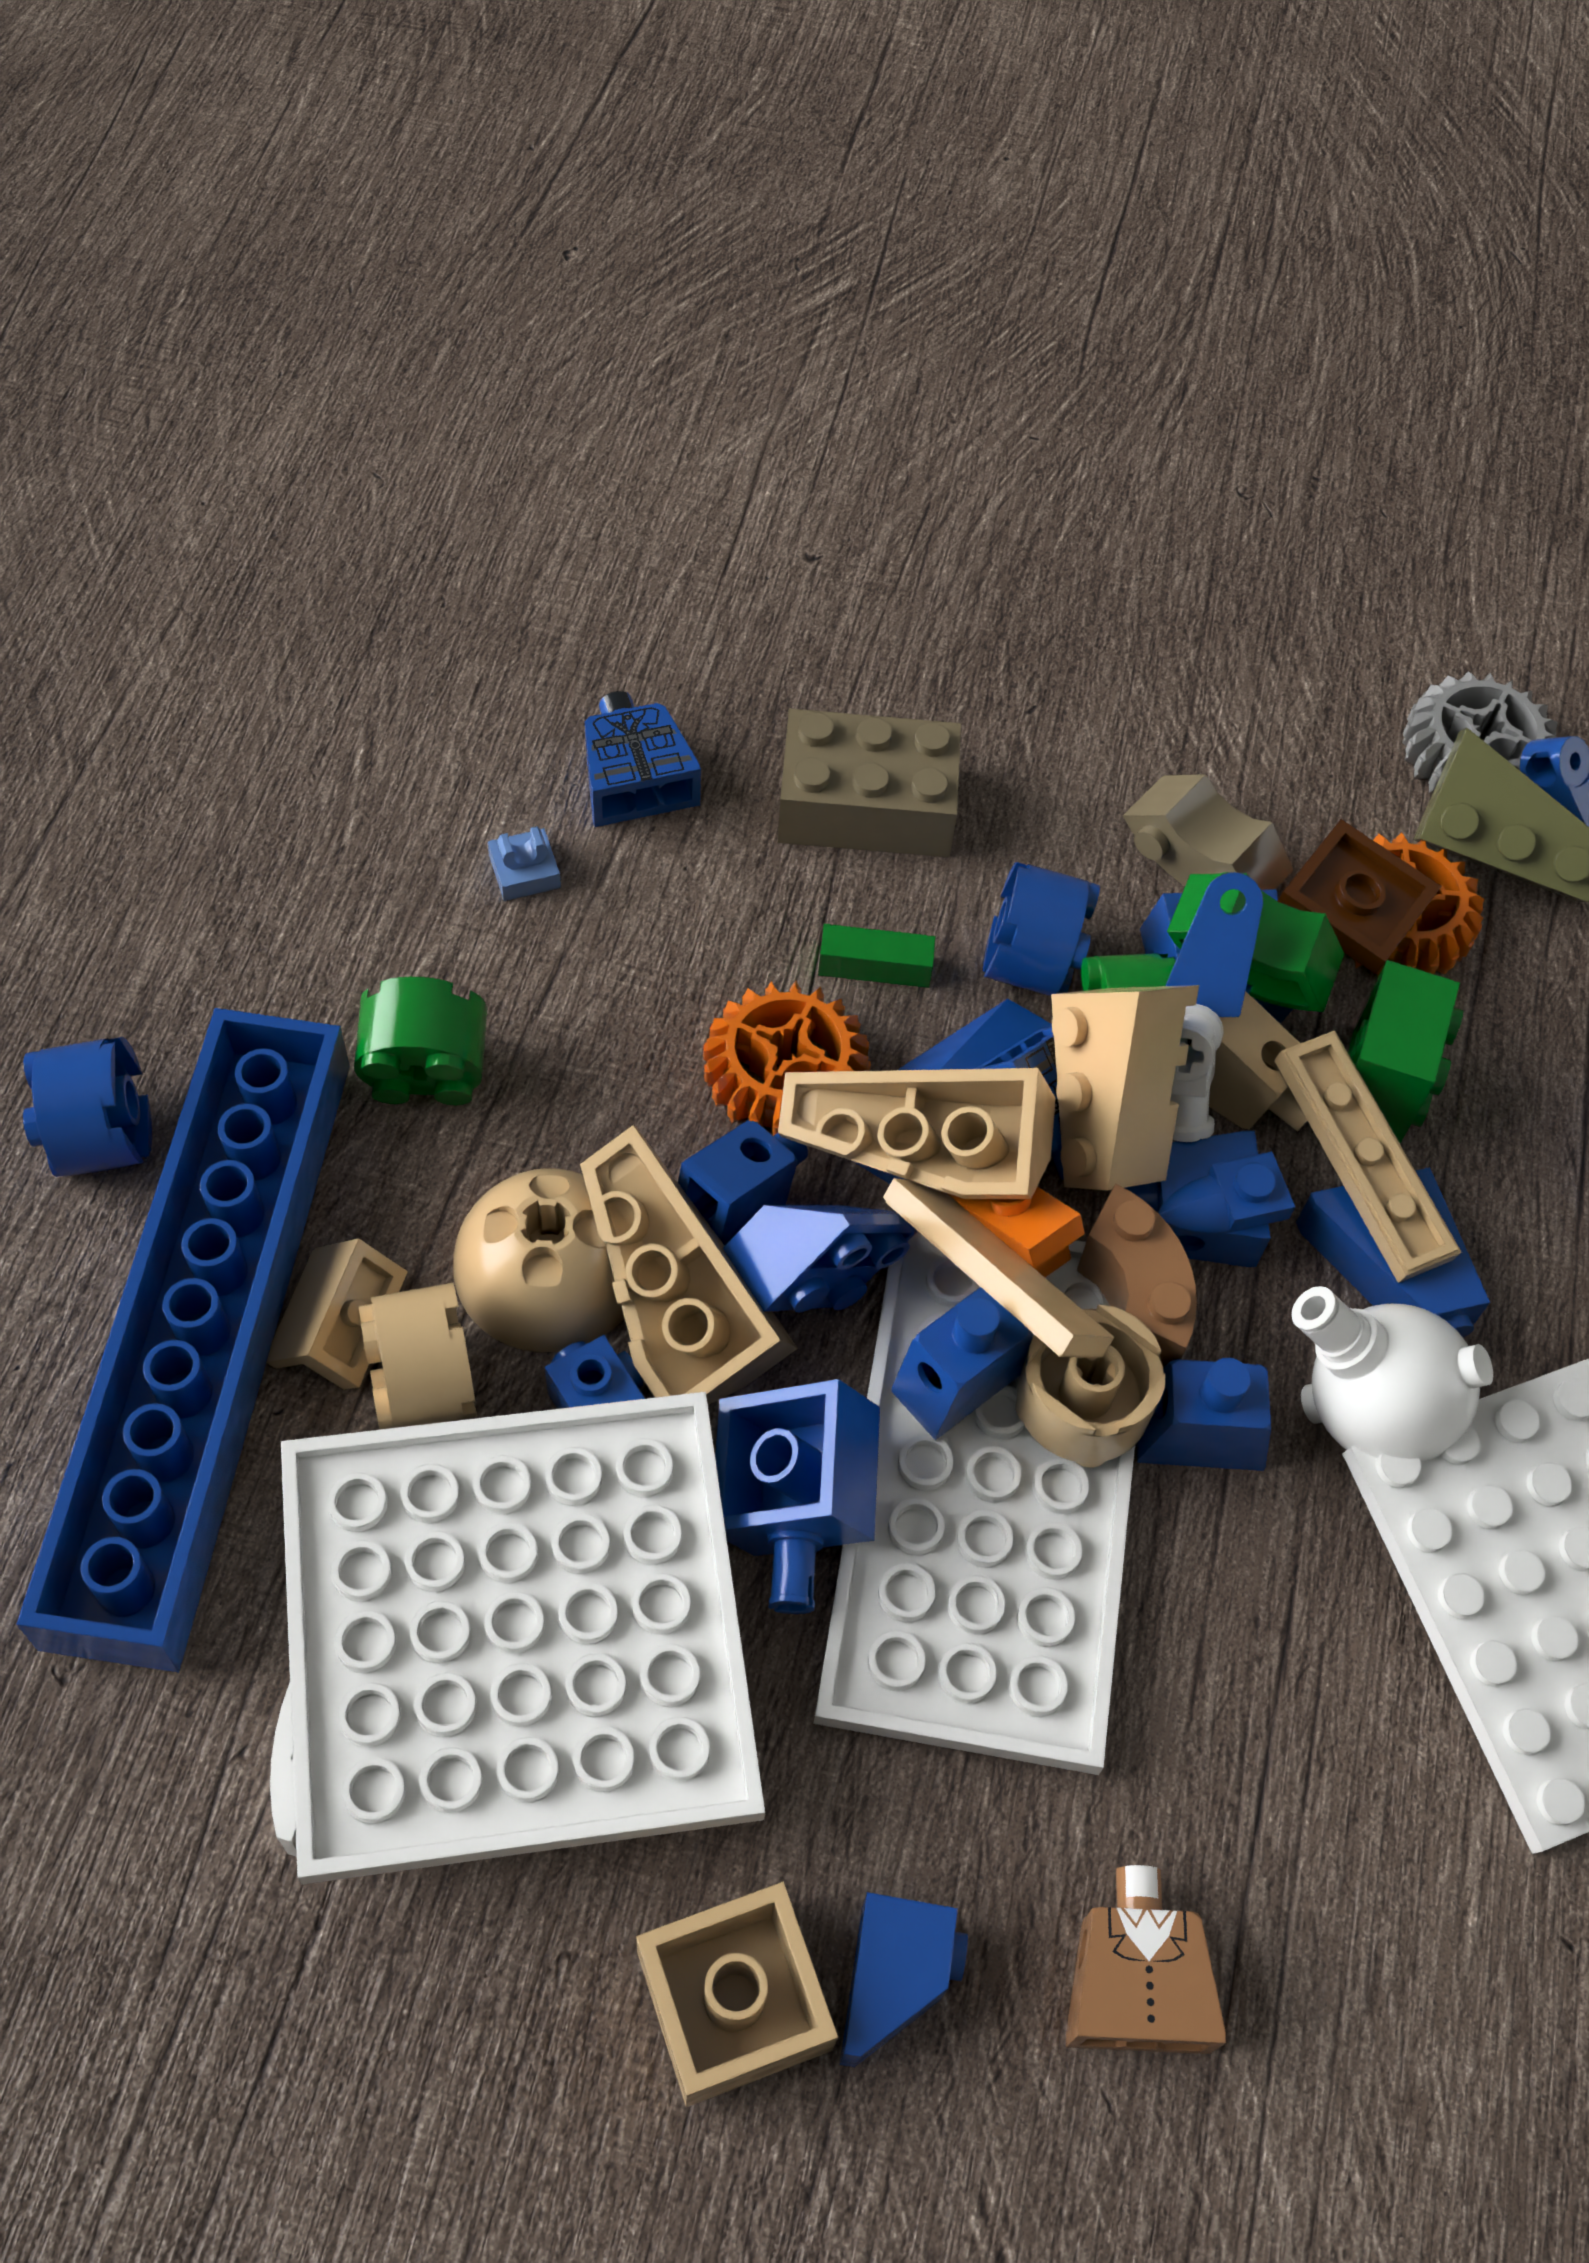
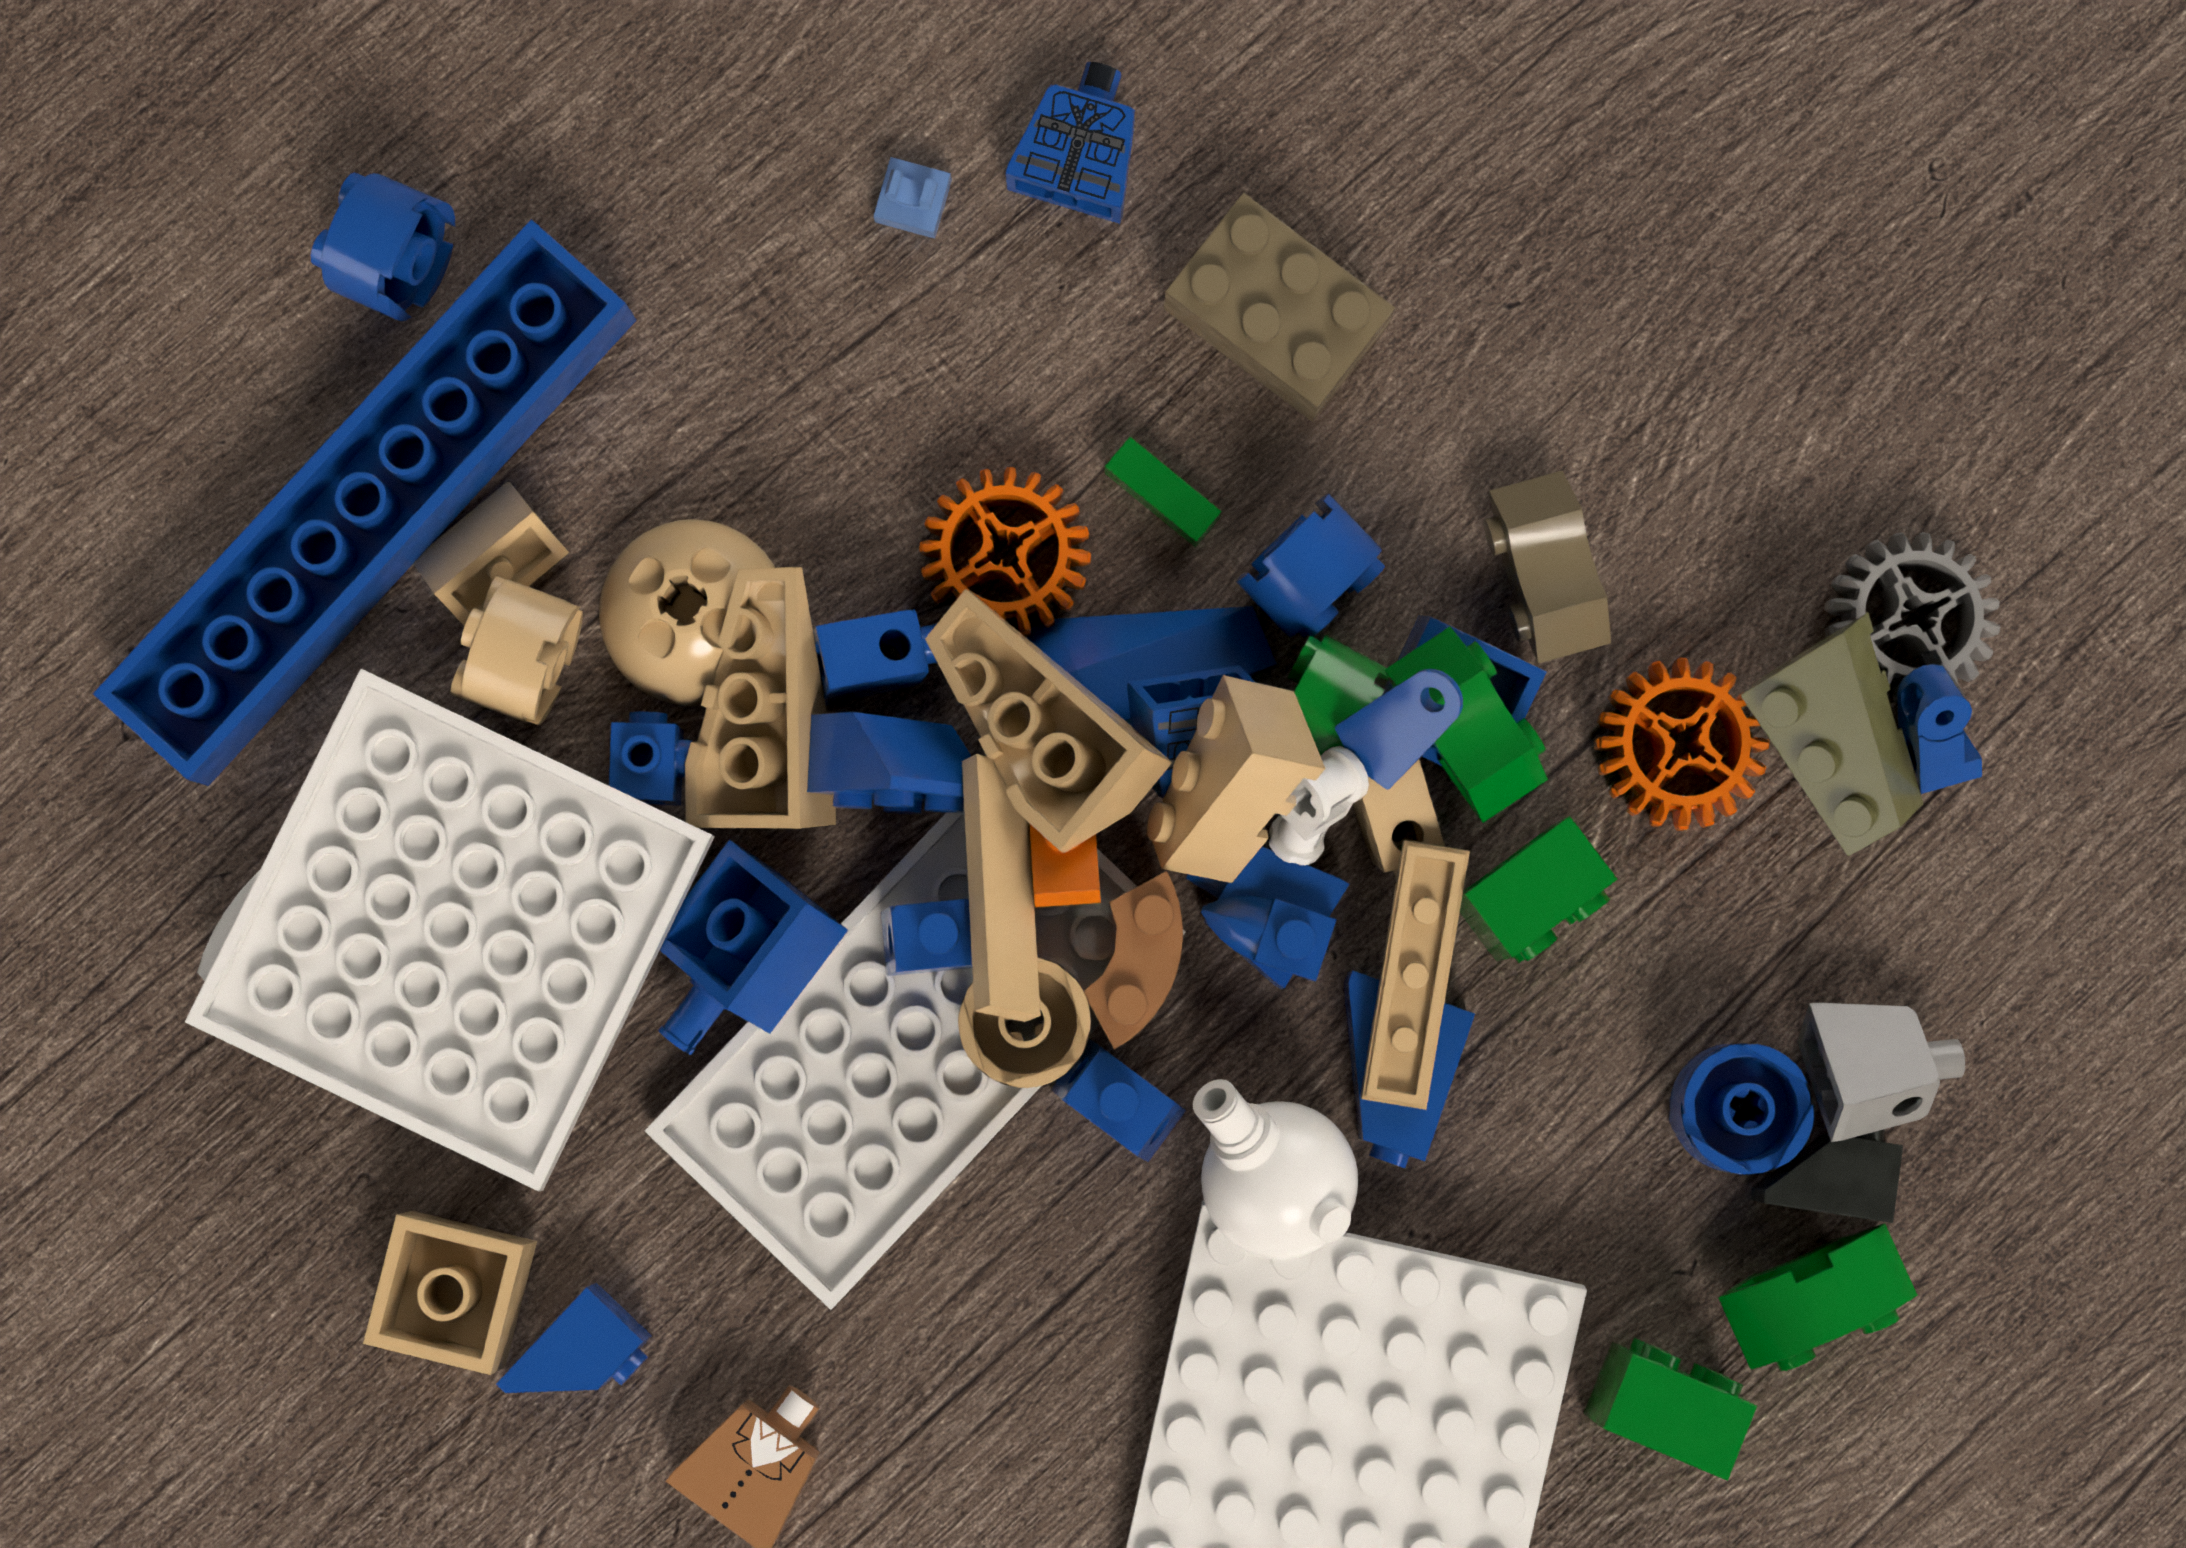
camera: 40 degrees right, 25 degrees up
(420, 1041) = (696, 348): green brick -> none
(1364, 893) = (1615, 727): reddish brown plate -> none

